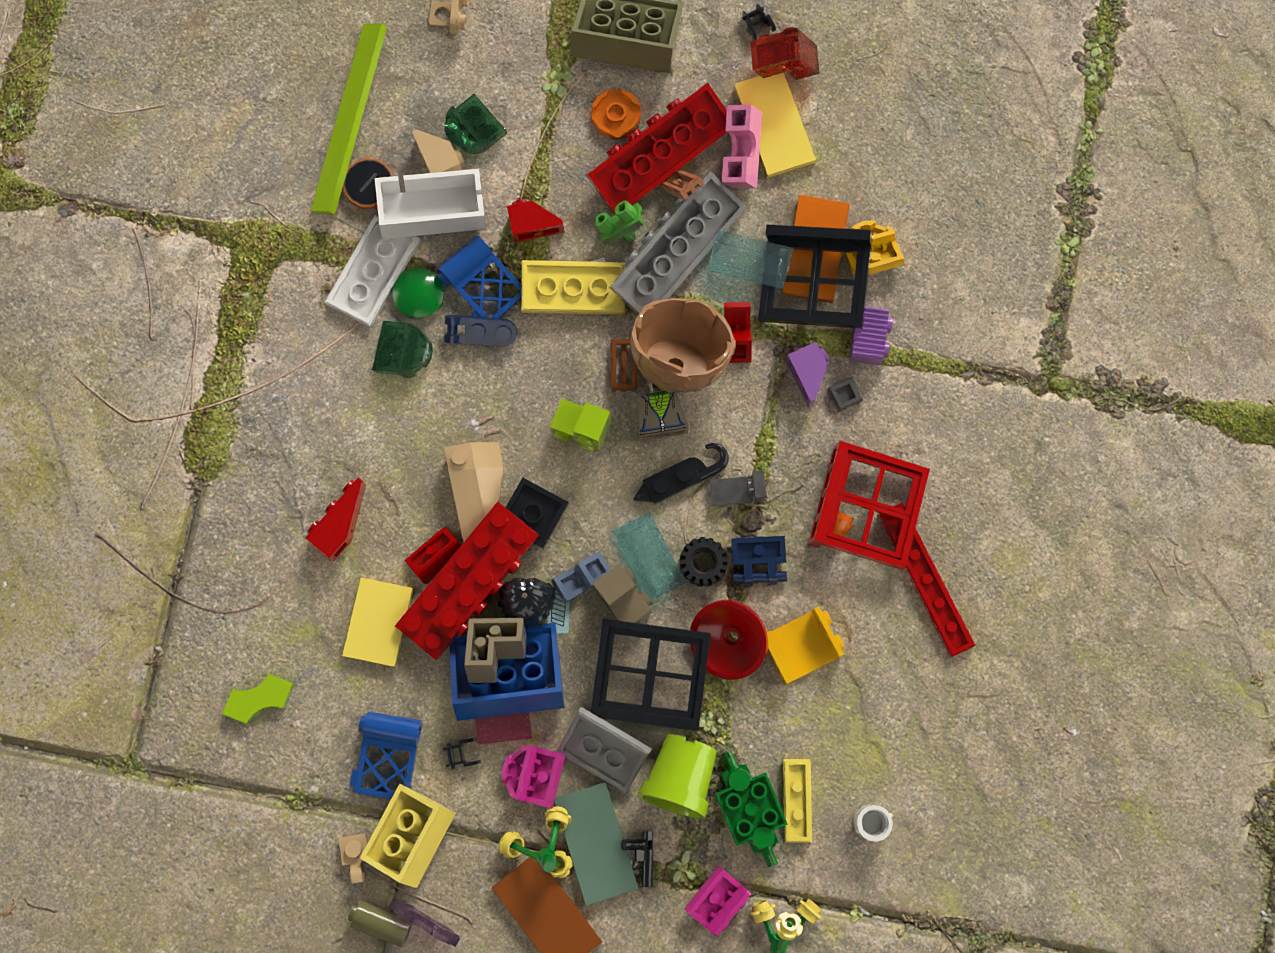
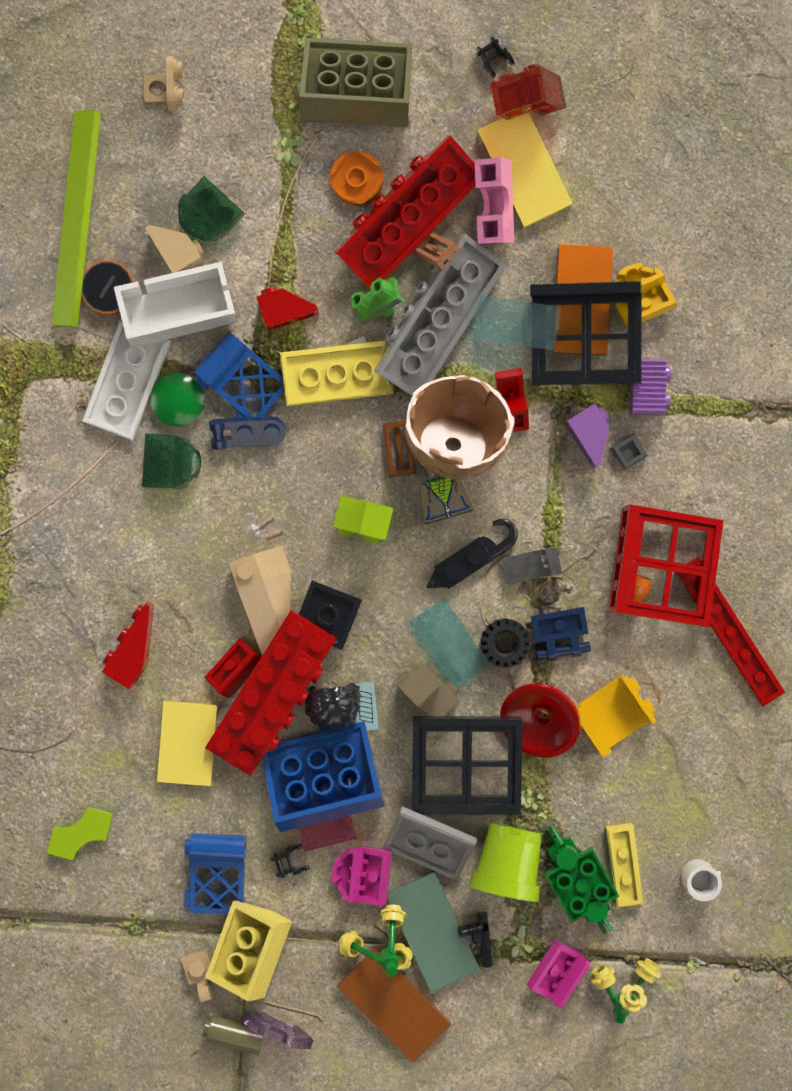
camera: 15 degrees left, 10 degrees up
(489, 641) = (302, 754): dark tan brick -> none
(581, 577) = (385, 673): sand blue slope -> none

